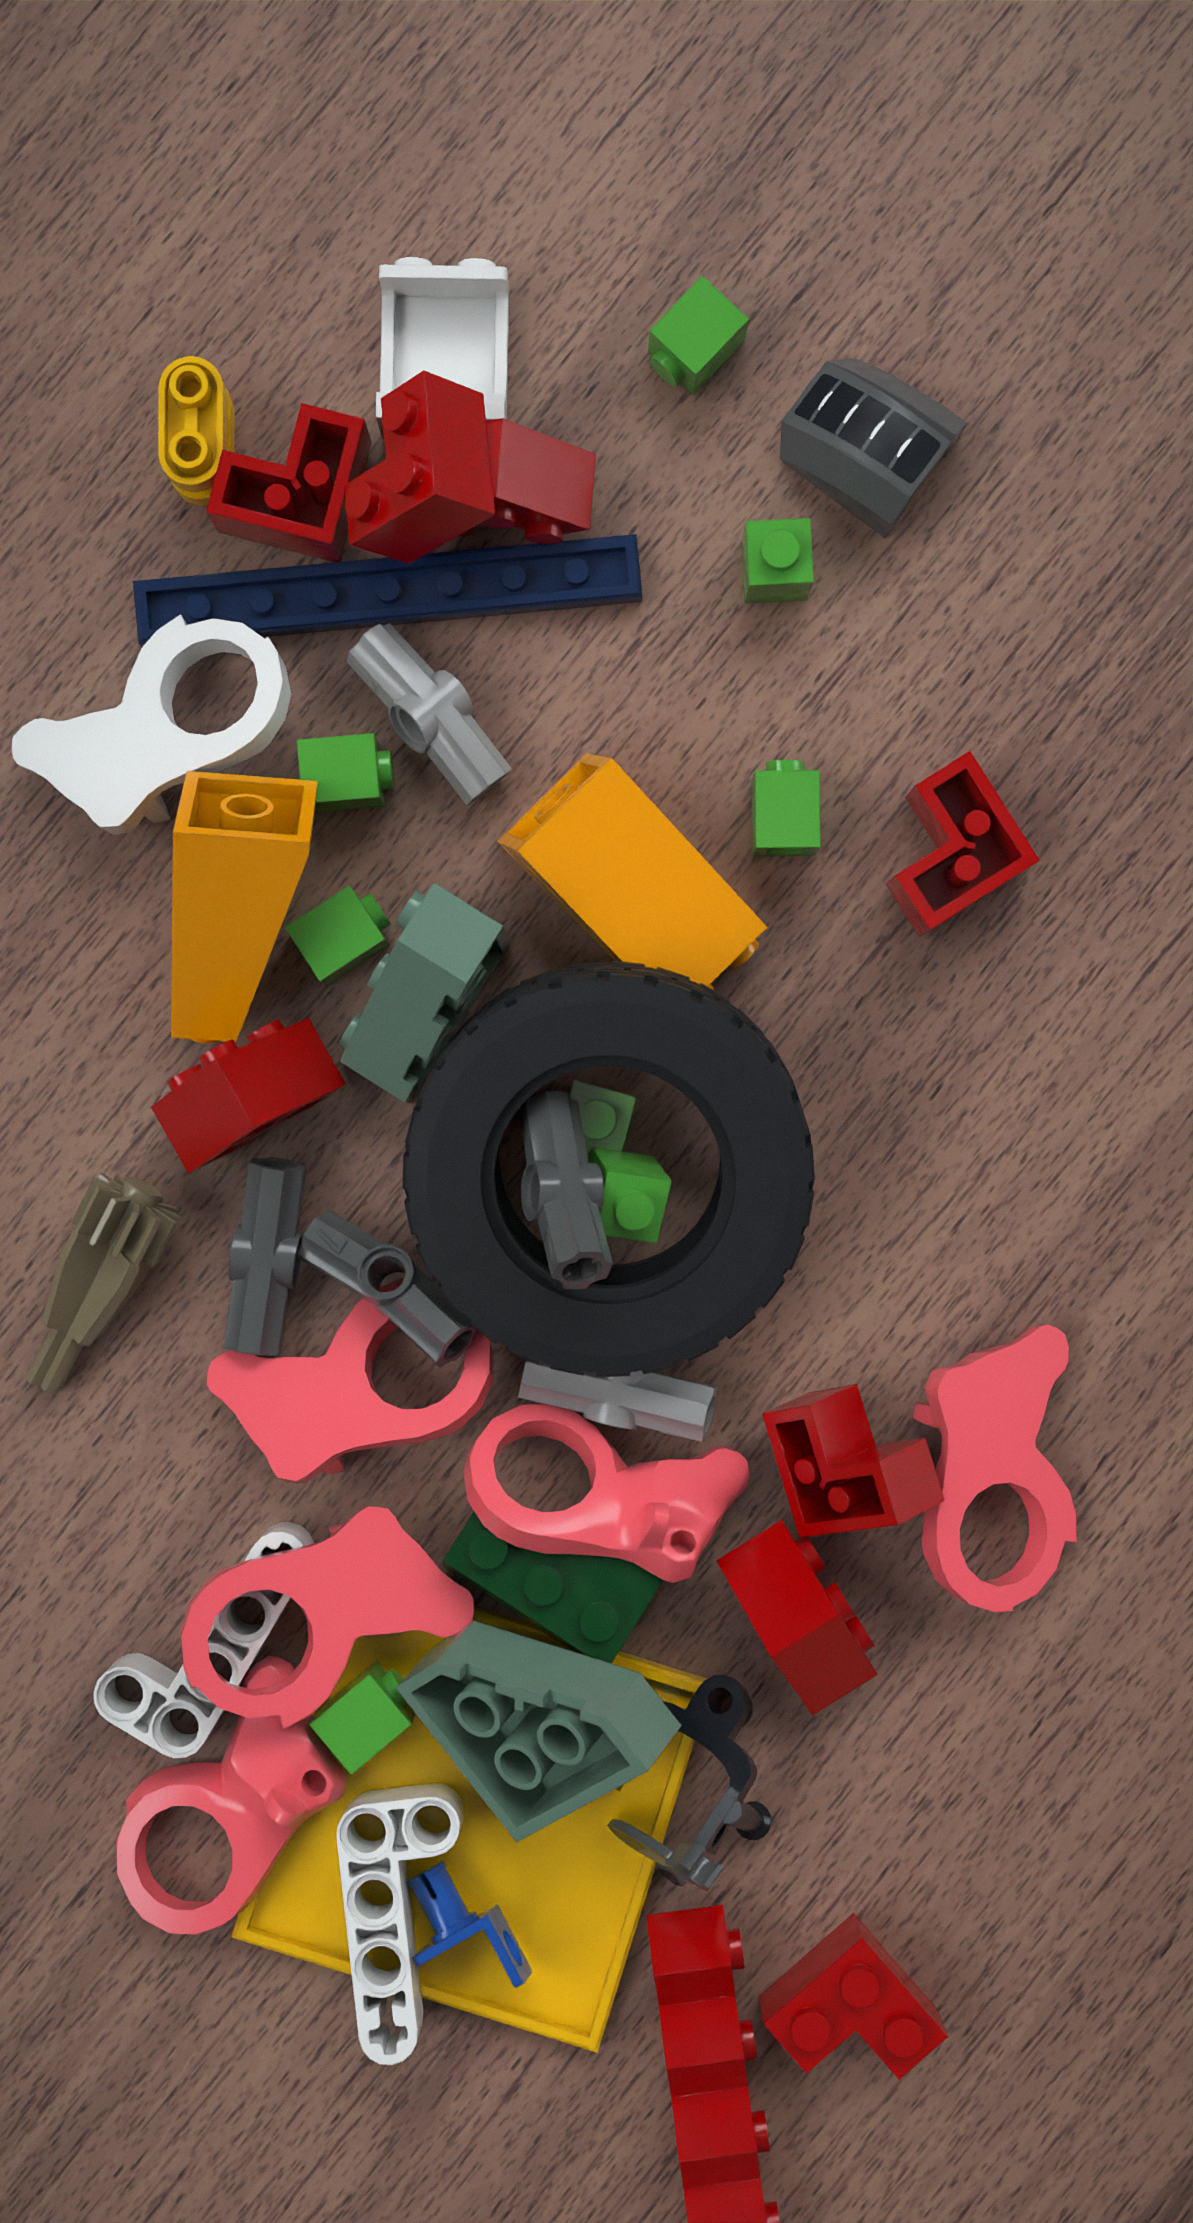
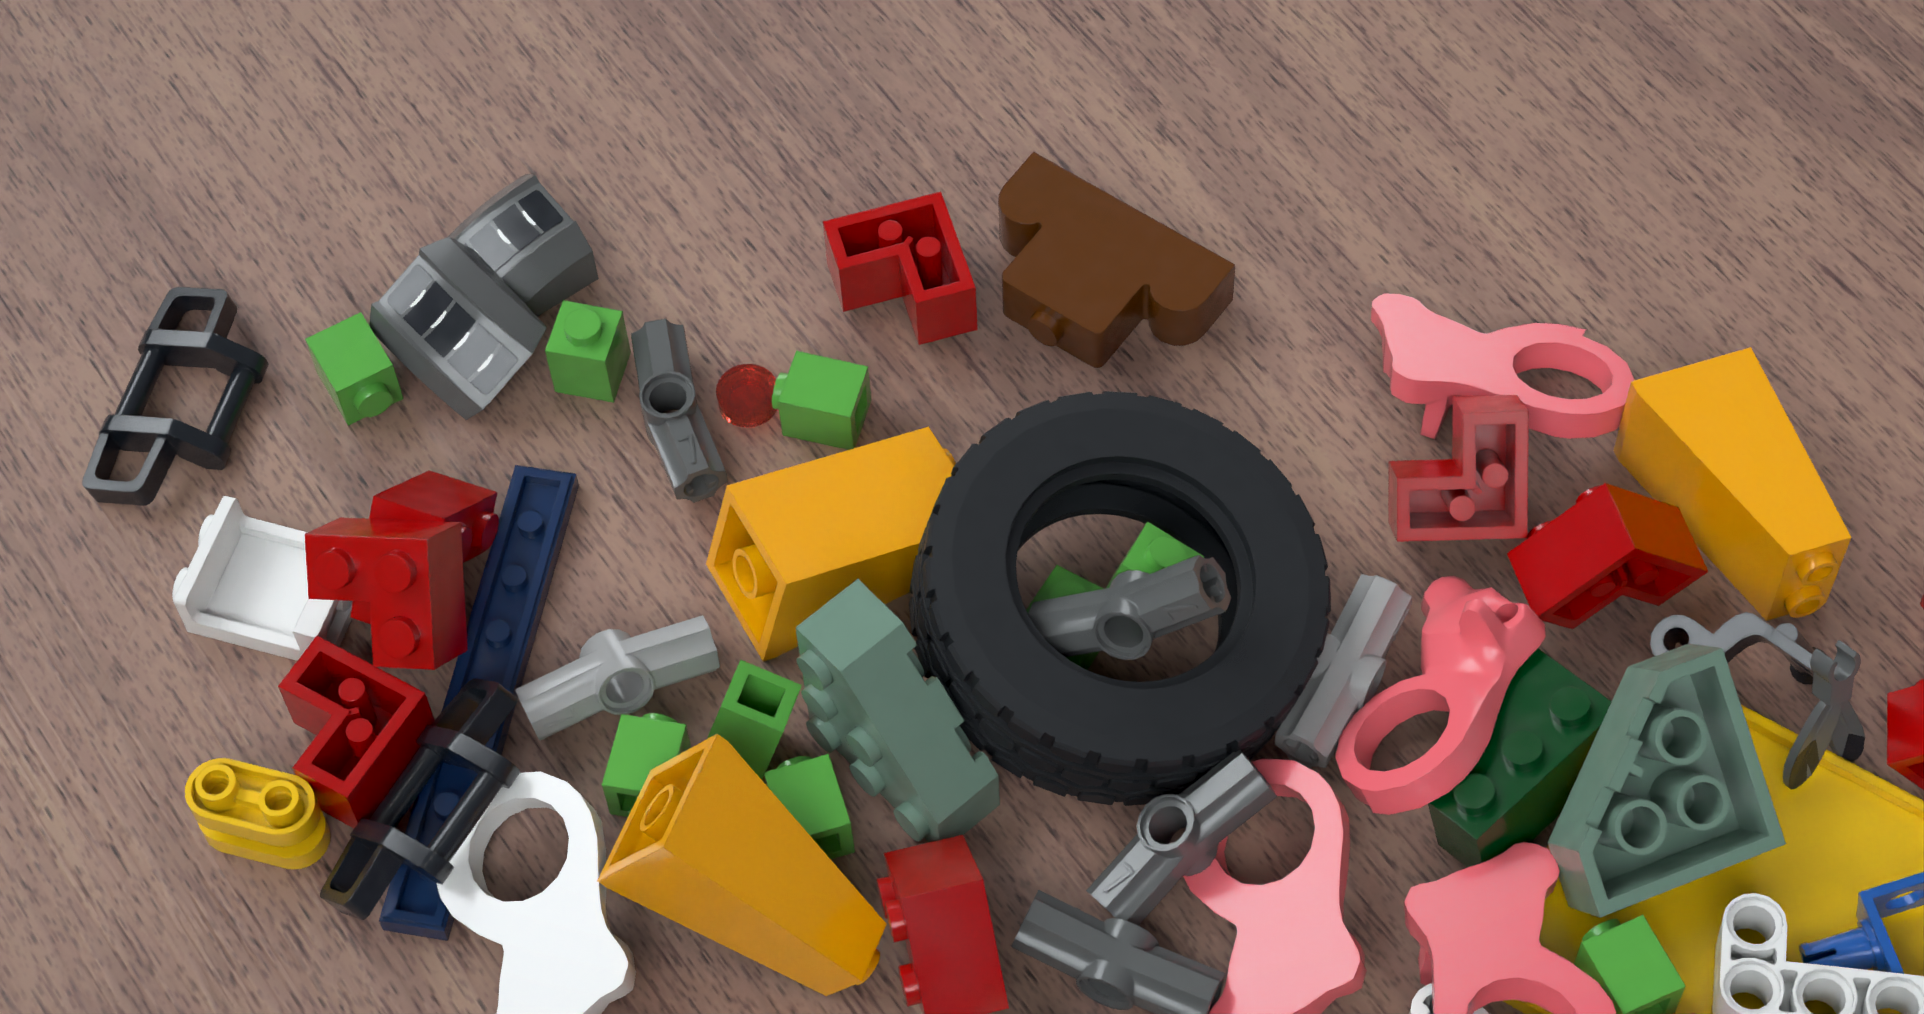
camera: 70 degrees left, 30 degrees down
(287, 599) = (379, 849): none -> black bar
(406, 854) = (755, 713): none -> bright green brick
(621, 132) = (167, 436): none -> black bar
(765, 424) = (456, 325): none -> dark grey slope
(767, 645) = (679, 436): none -> dark grey piece
(780, 732) = (746, 395): none -> clear red tile
(913, 1733) = (1741, 477): none -> light orange slope
(1019, 1038) = (1100, 267): none -> reddish brown brick

